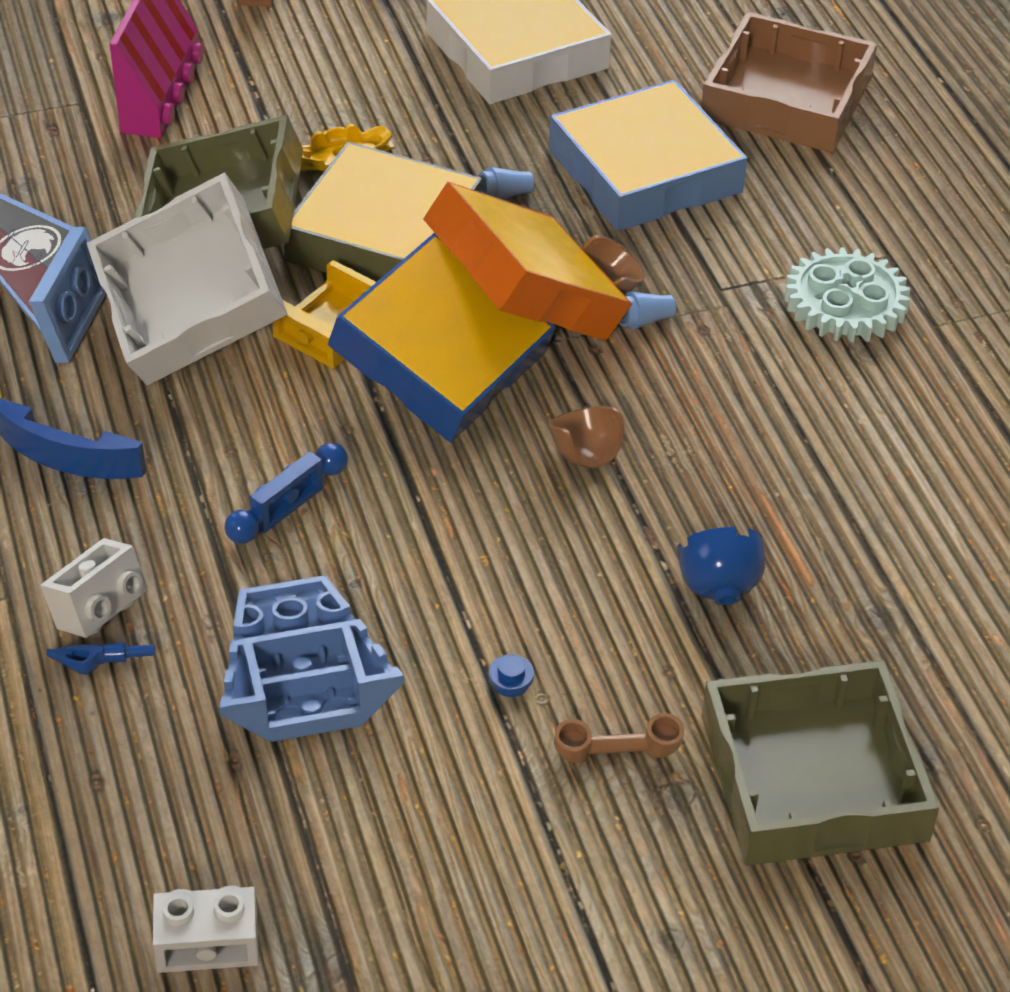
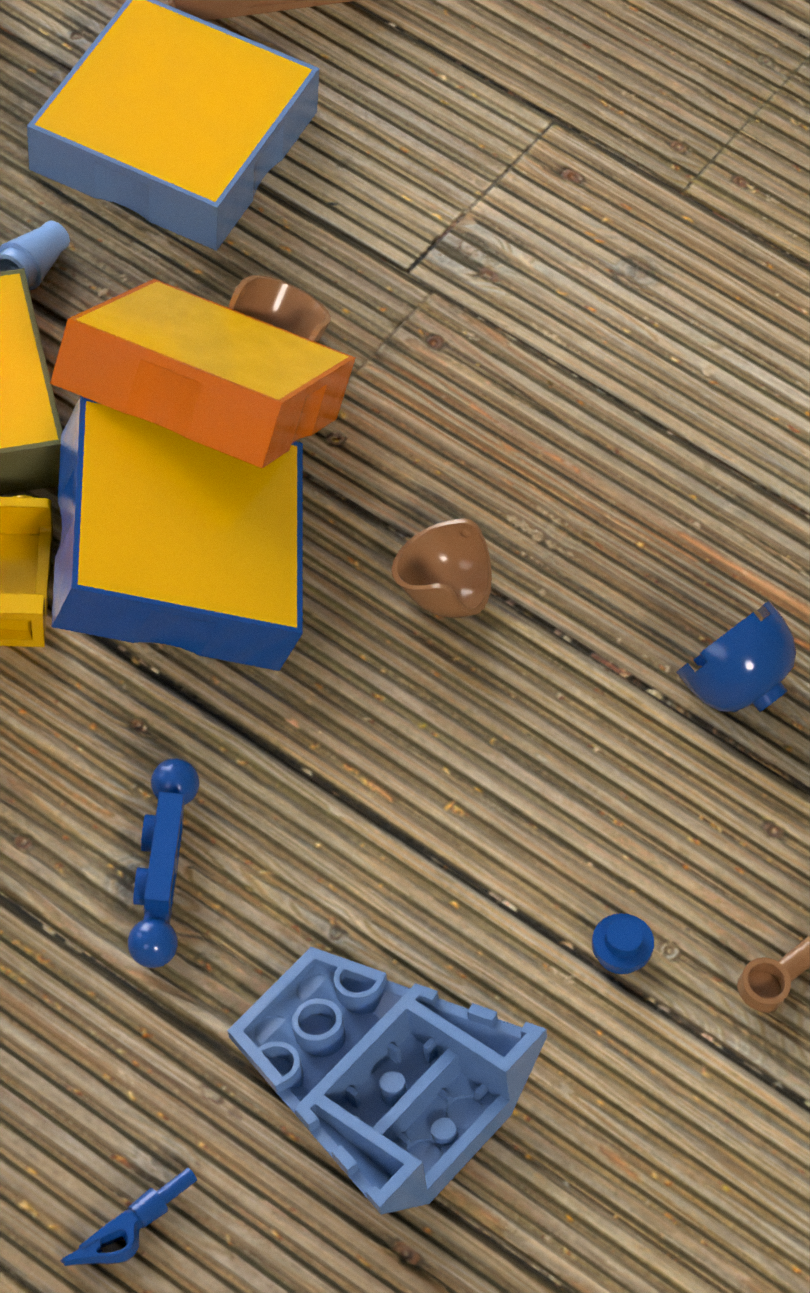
camera: 40 degrees left, 10 degrees up
(94, 587) = (65, 1141): white brick -> none
(647, 309) = (366, 344): light blue cone -> none
(847, 294) = (568, 205): light aqua gear -> none

